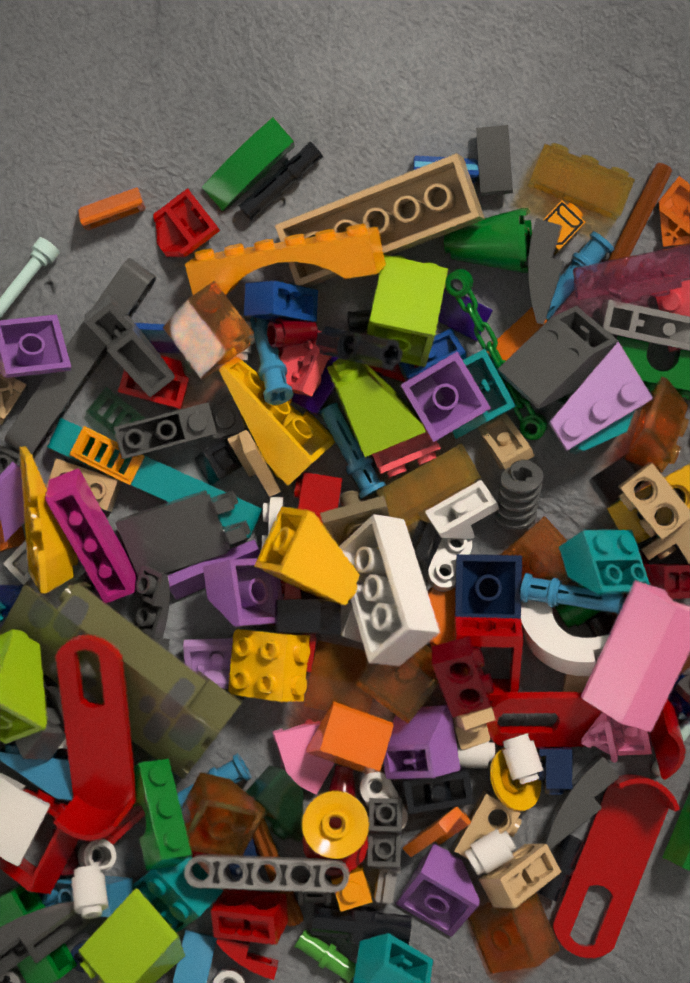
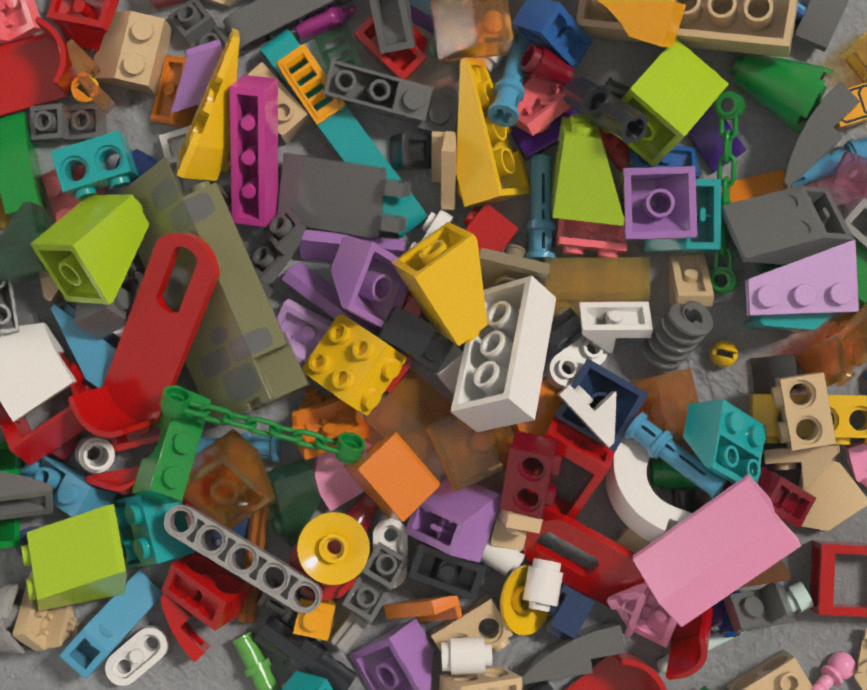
camera: 25 degrees right, 0 degrees up
(89, 891) = (66, 482): white brick -> none
(92, 388) = (323, 22): none -> magenta piece
(128, 866) = (116, 480): none -> red slope
(143, 777) = (176, 401): none -> green piece
(207, 621) = (320, 293): none -> medium lavender tile
(273, 726) = (328, 417): none -> orange slope
(493, 600) = (599, 419): none -> white slope
(566, 479) = (721, 361): none -> yellow hinge

